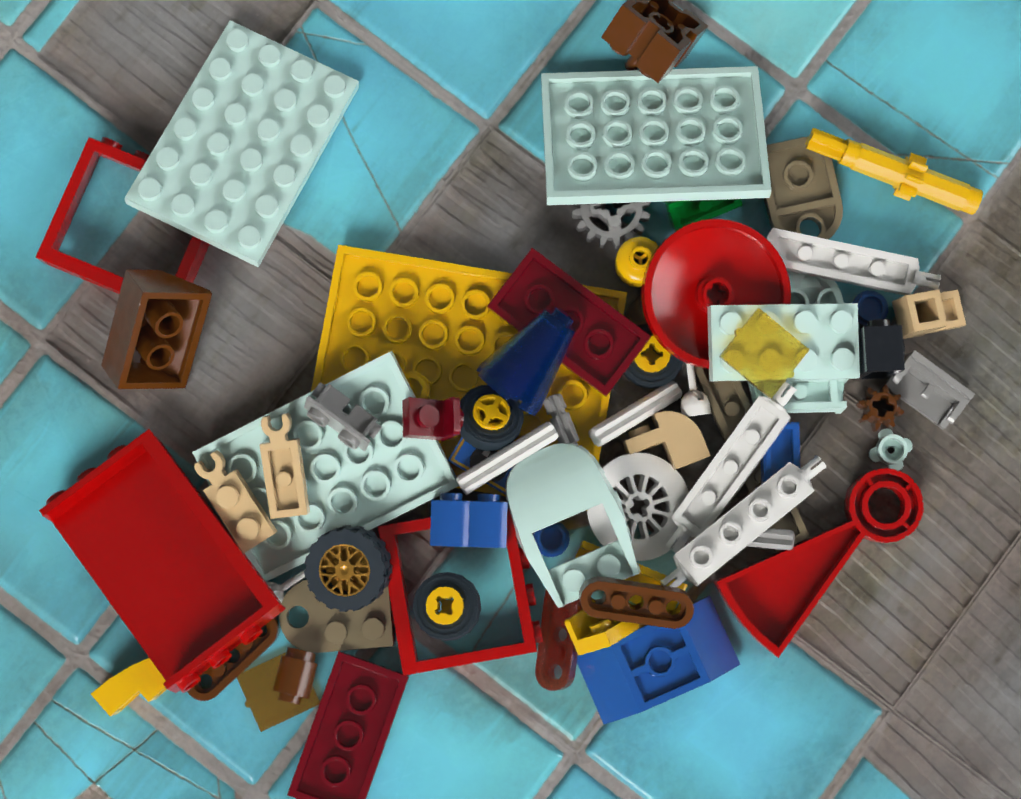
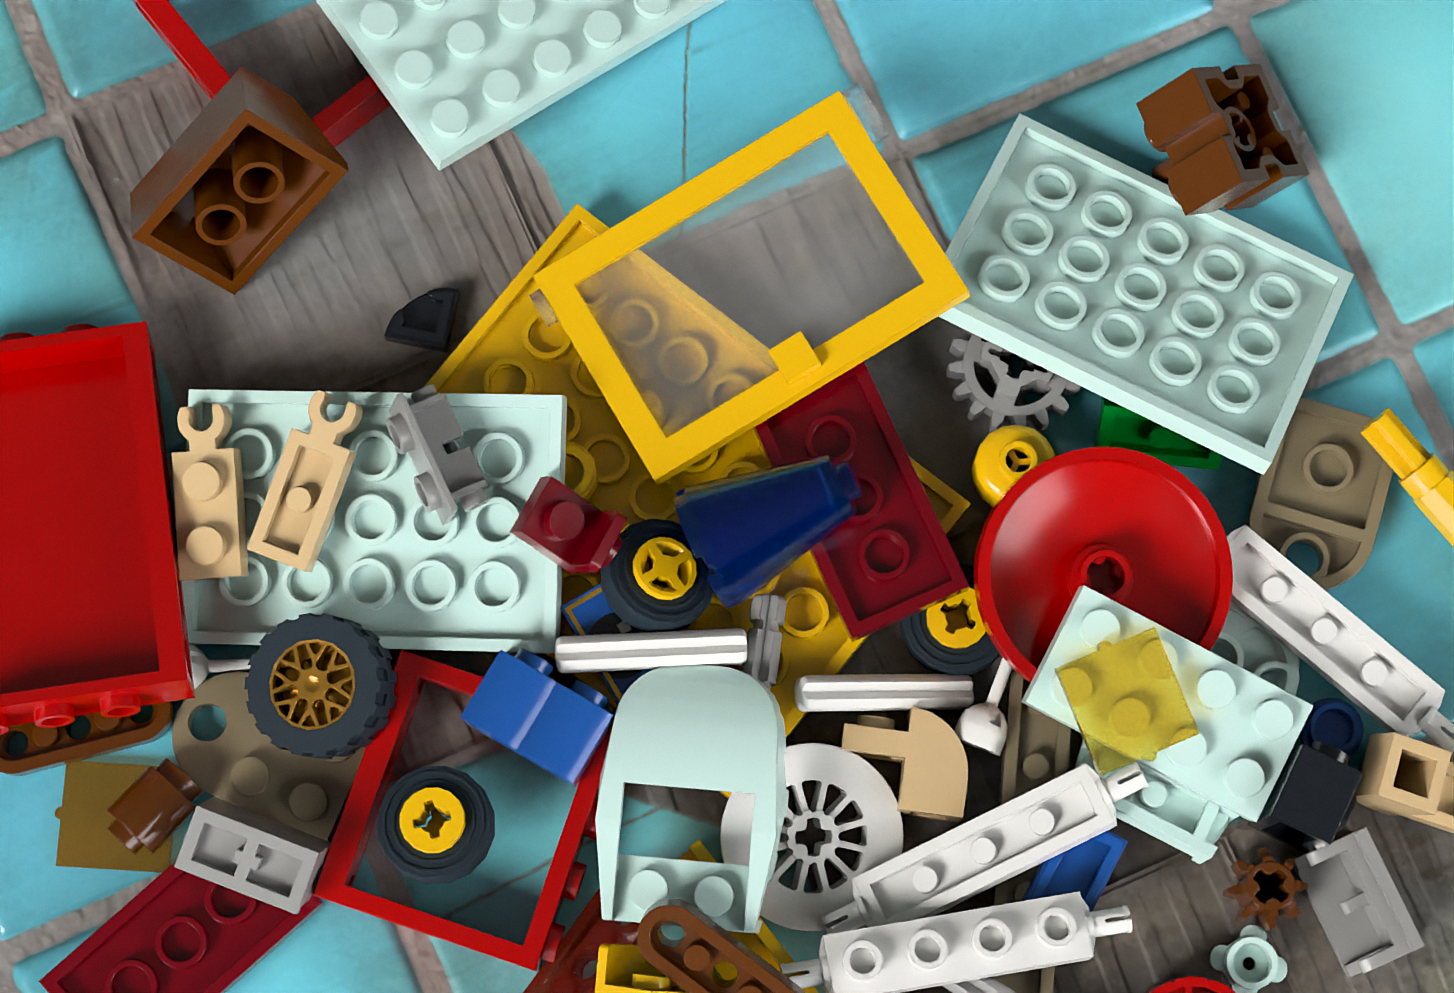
camera: 25 degrees right, 5 degrees down
(292, 348) = (426, 320): none -> black tile
(361, 672) = (252, 854): none -> light grey hinge
(454, 240) = (750, 284): none -> door
(552, 540) = (653, 814): blue plate -> none

